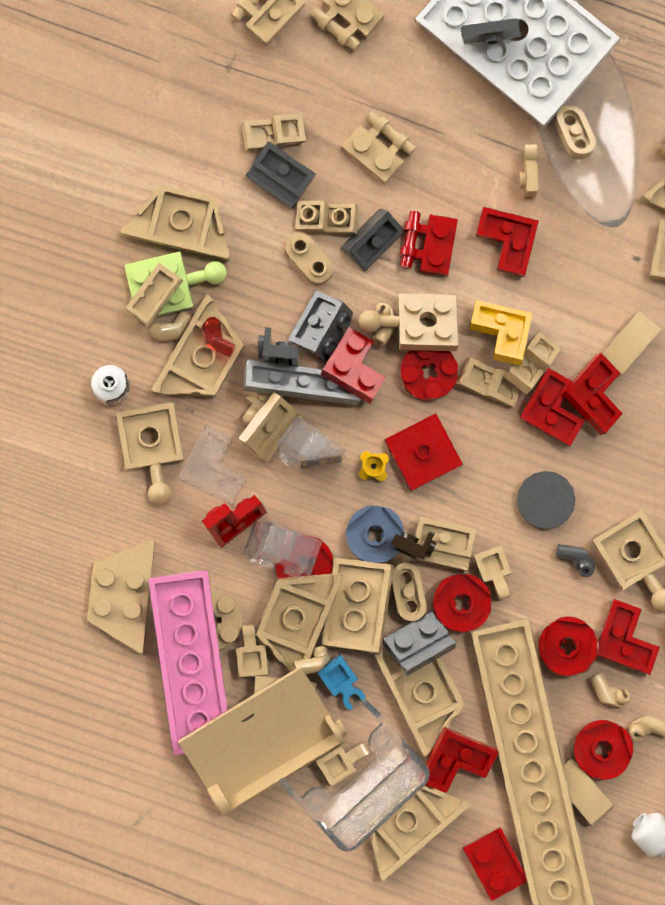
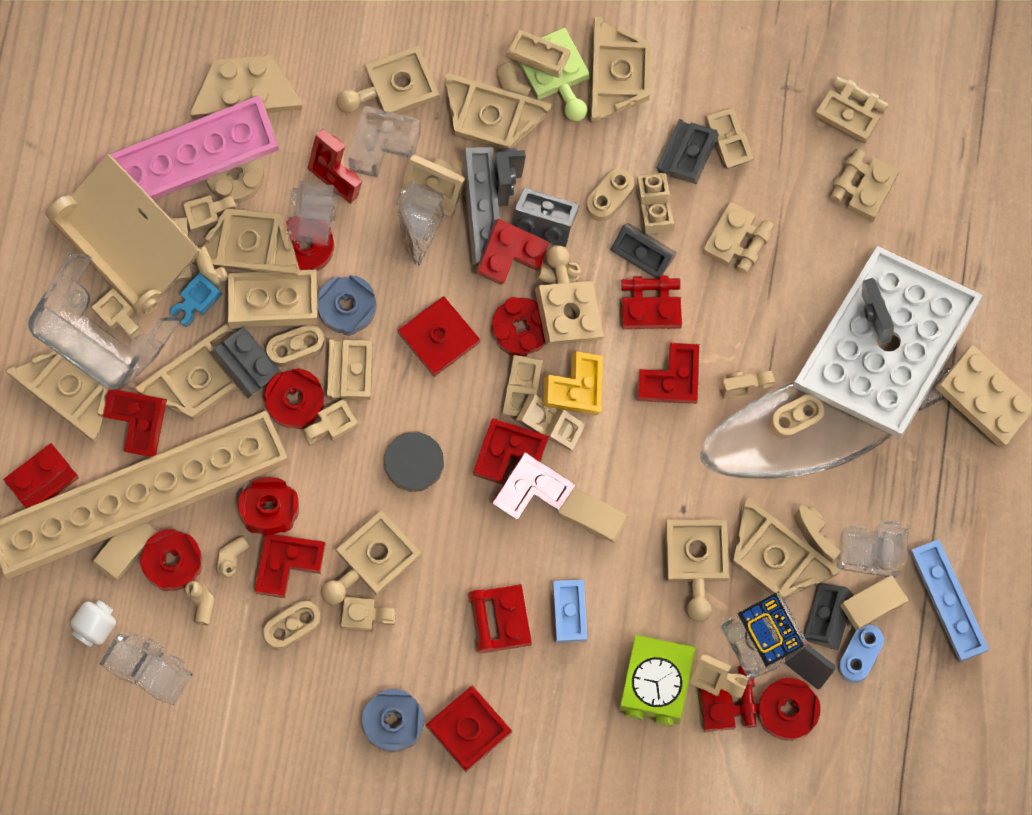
camera: 80 degrees right, 10 degrees down
(114, 394) = (443, 35): white head -> none
(214, 339) = (508, 117): clear red arm -> none
(369, 459) = (419, 284): yellow plate -> none
(408, 545) = (340, 329): dark brown bracket -> none
(579, 556) = (362, 504): dark grey arm -> none

